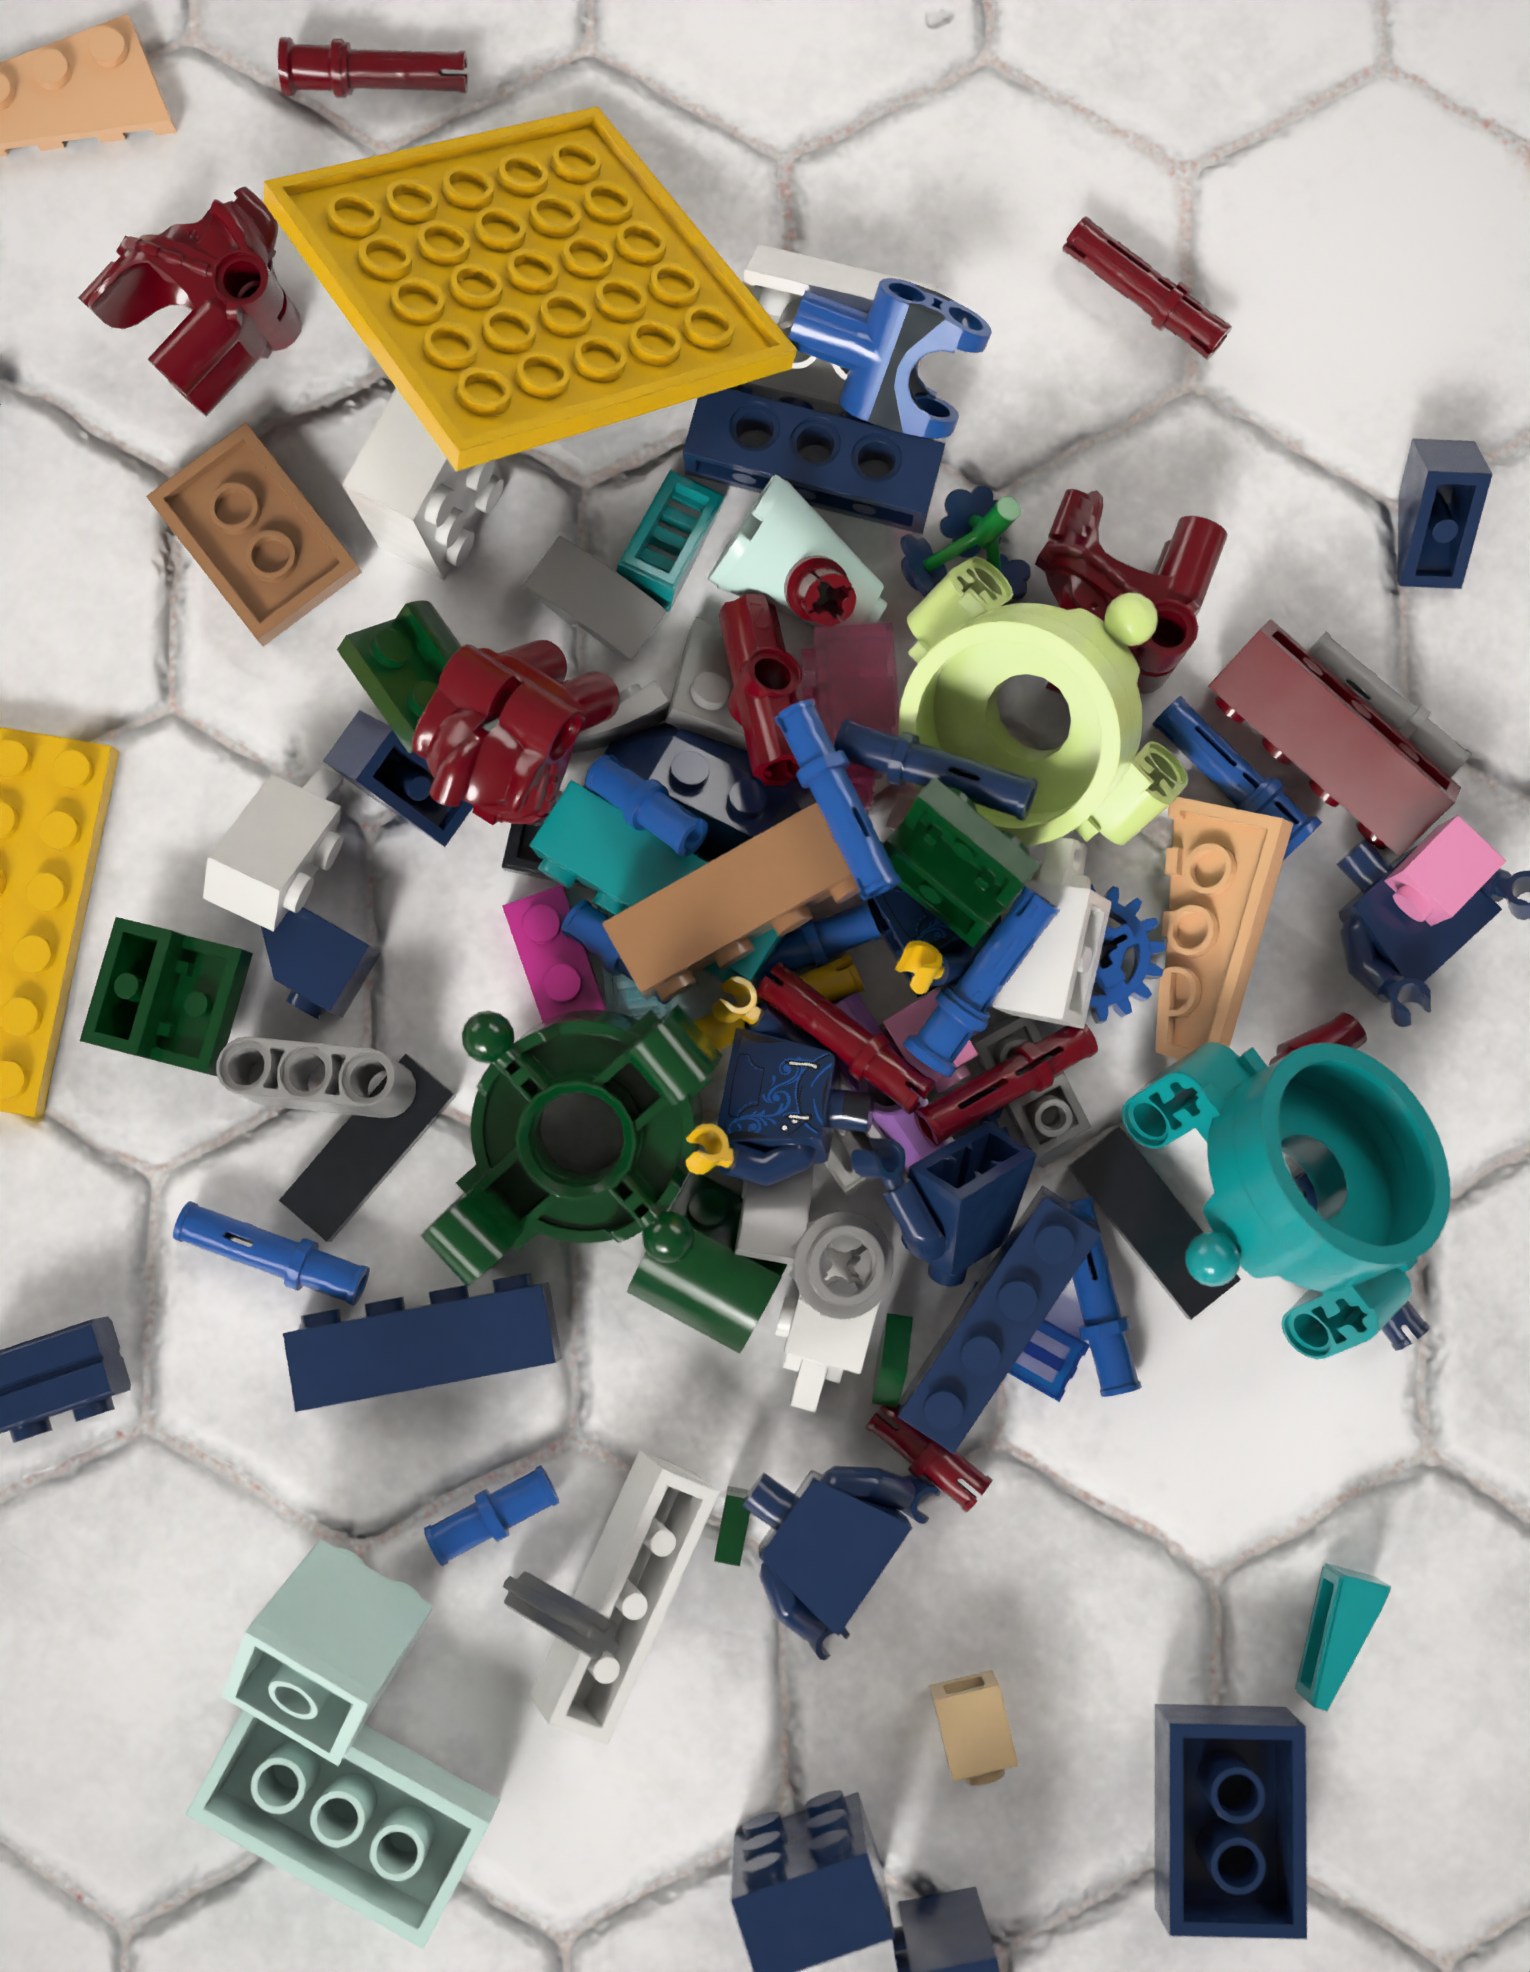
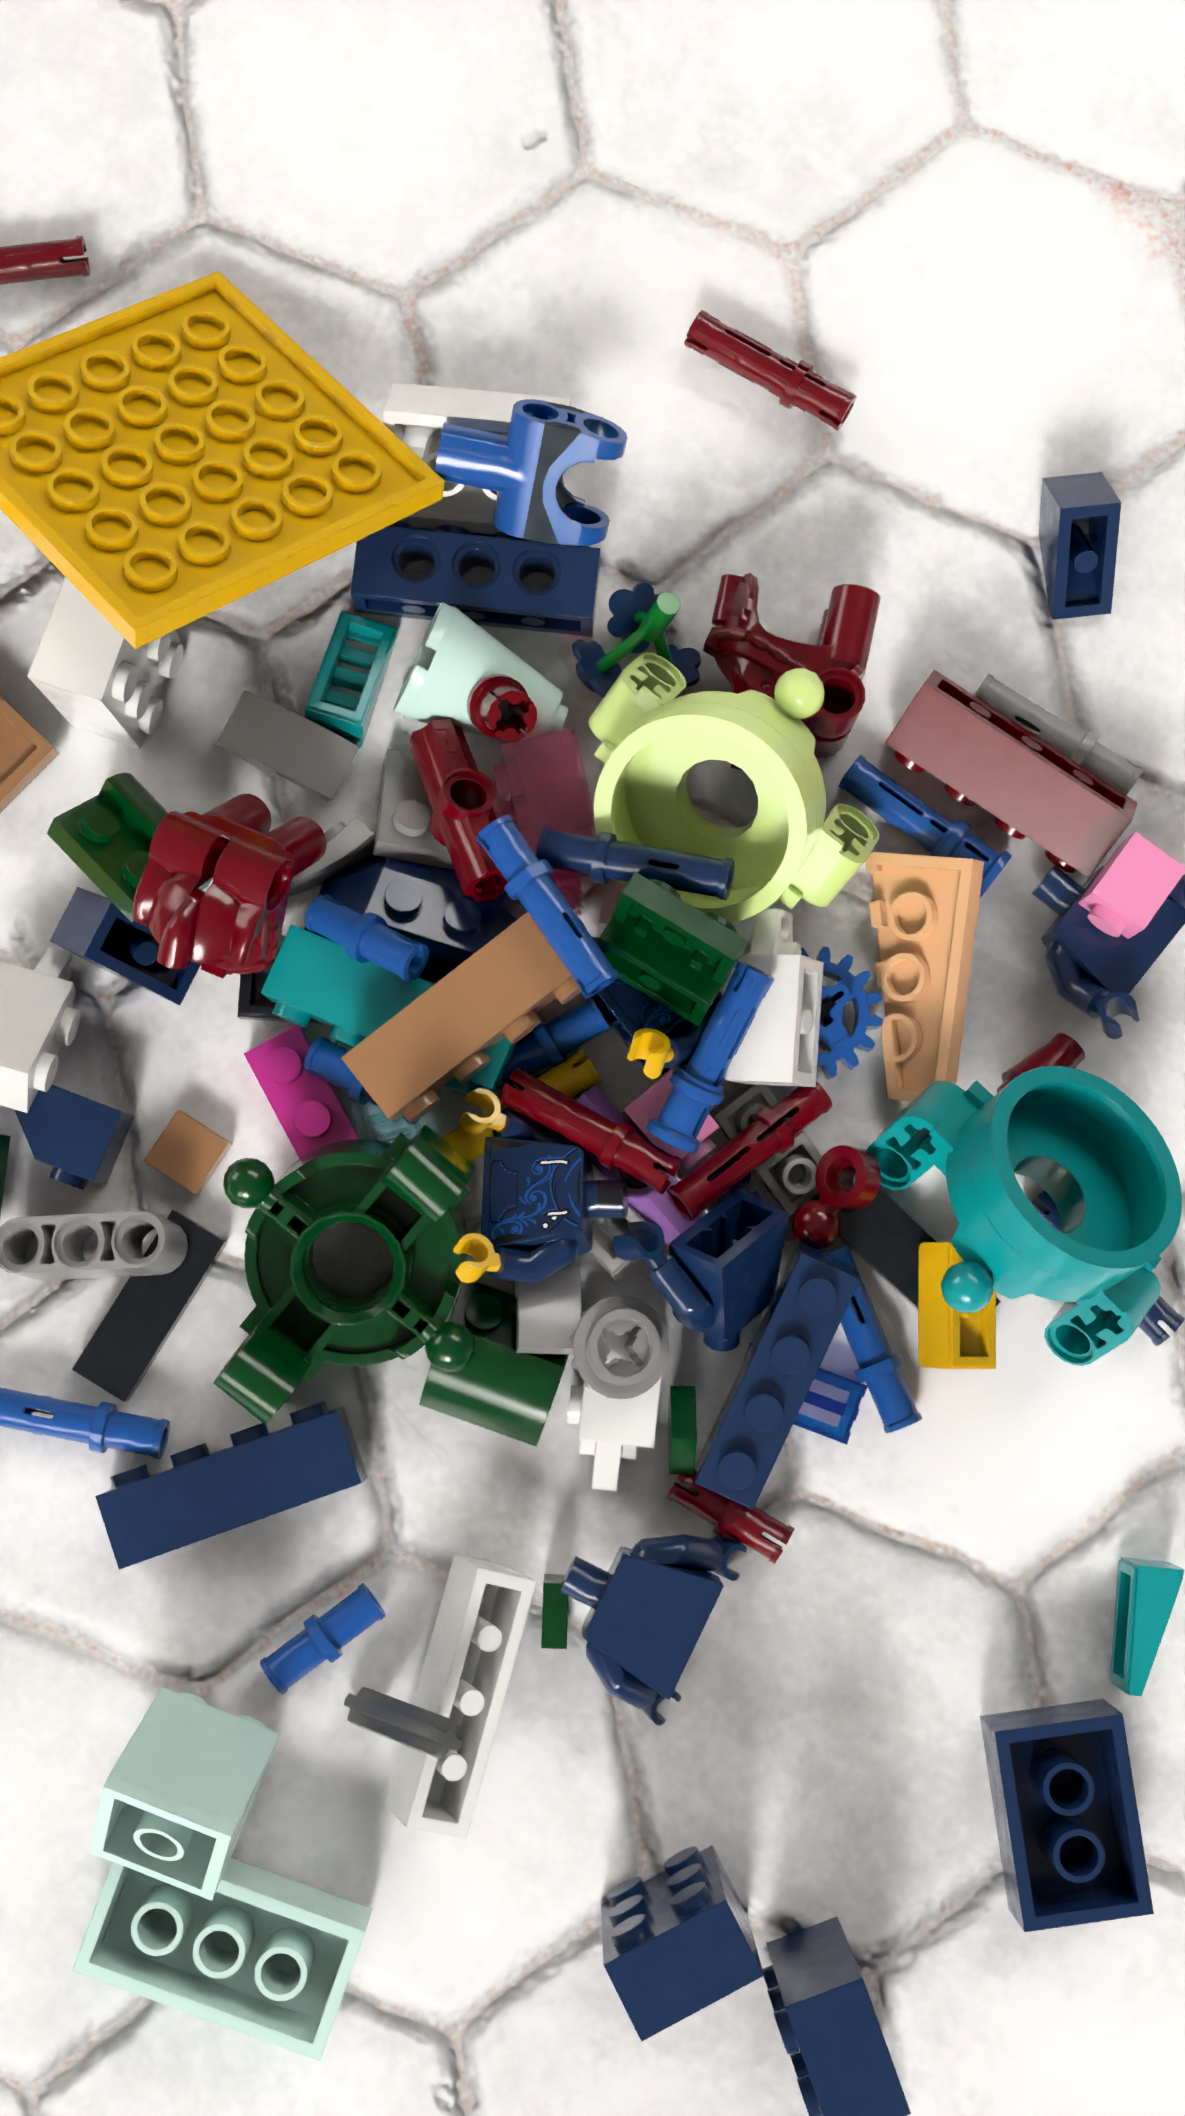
camera: 15 degrees left, 0 degrees up
(430, 997) = (188, 1152): none -> medium nougat tile
(974, 1728) = (812, 1766): tan brick -> none
(1065, 1167) = (818, 1221): none -> dark red plate
(1180, 1304) = (945, 1335): none -> yellow slope

